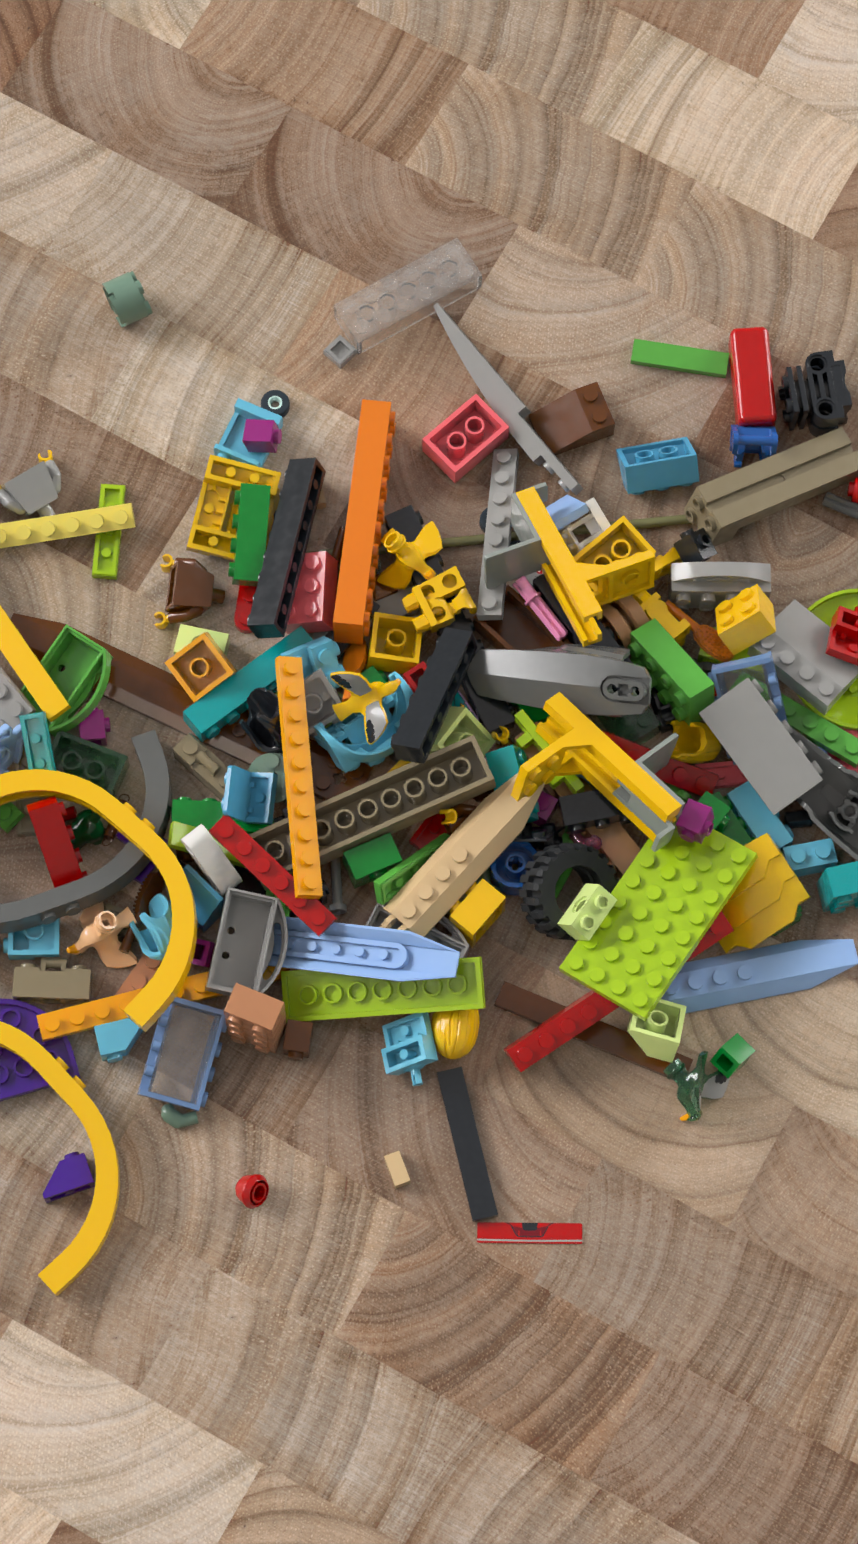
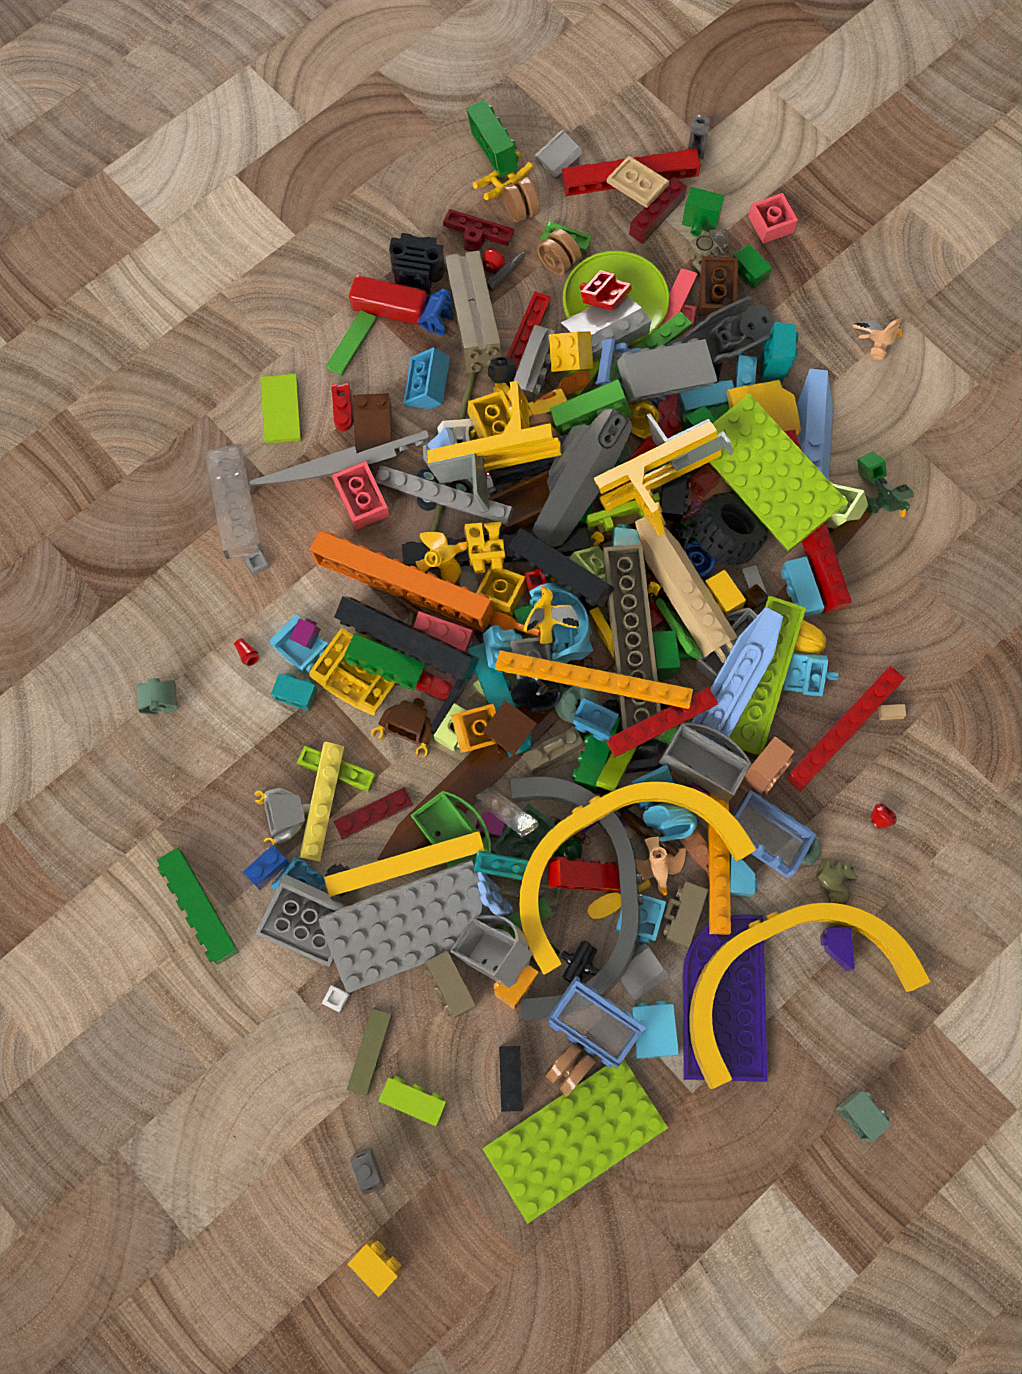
camera: 70 degrees left, 0 degrees up
(33, 884) = (610, 903): none -> yellow piece
(67, 591) = (373, 813): none -> dark red plate
(109, 733) = (506, 811): none -> clear tile
(151, 1148) = (832, 879): none -> olive animal
(186, 450) = (294, 691): none -> teal brick
(209, 701) = (509, 727): none -> reddish brown tile
(211, 859) = (633, 764): white beam -> none
(218, 380) = (246, 652): none -> red cone
(236, 632) = (452, 698): none -> black tile
(276, 396) = (275, 615): black wheel -> none
(353, 1114) = (845, 728): none -> red brick
(467, 1144) = (882, 659): black tile -> none
(493, 954) = (754, 597): none -> reddish brown bracket
(520, 954) = (753, 577): none -> white sticker
(524, 1008) = (802, 586): none -> medium azure brick
(529, 1233) = (957, 639): red sticker -> none
(541, 609) = (513, 481): bright pink axle -> none
(556, 306) = (280, 408): none -> lime tile
(586, 375) = (342, 407): none -> red plate
(587, 911) = (756, 516): yellowish green brick -> none
(625, 841) = (704, 481): none -> clear red brick
(695, 821) = (719, 420): magenta brick -> none
(786, 565) = (533, 316): none -> red plate

